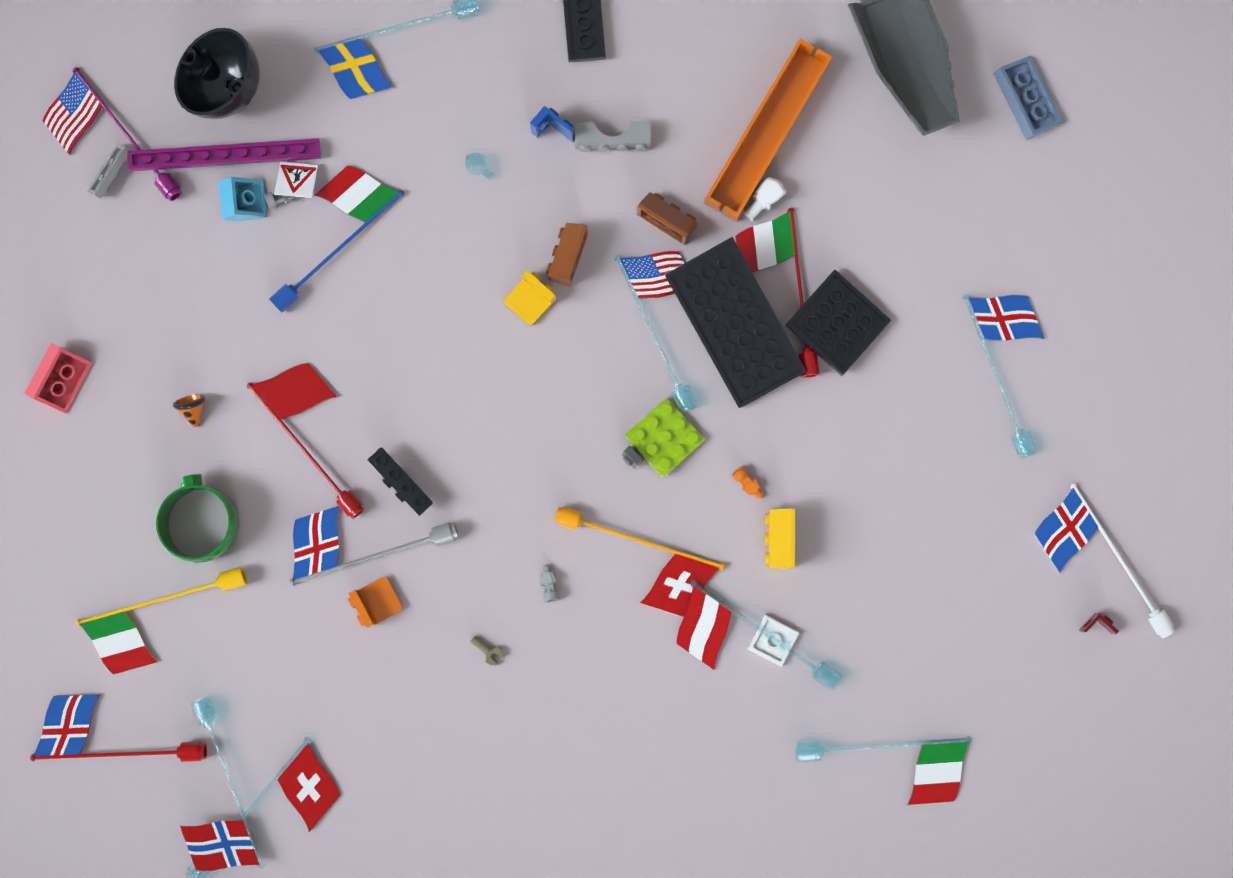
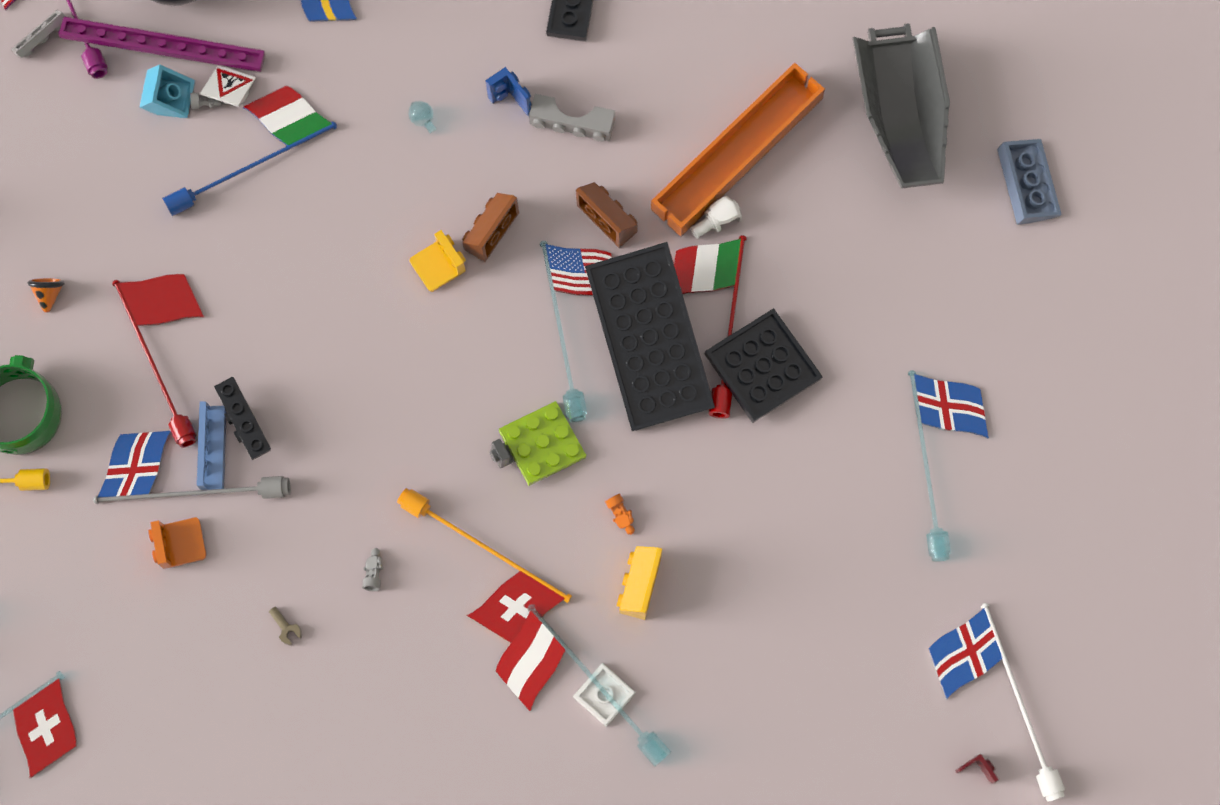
camera: 15 degrees right, 10 degrees down
(379, 512) = (211, 447): none -> medium blue fence

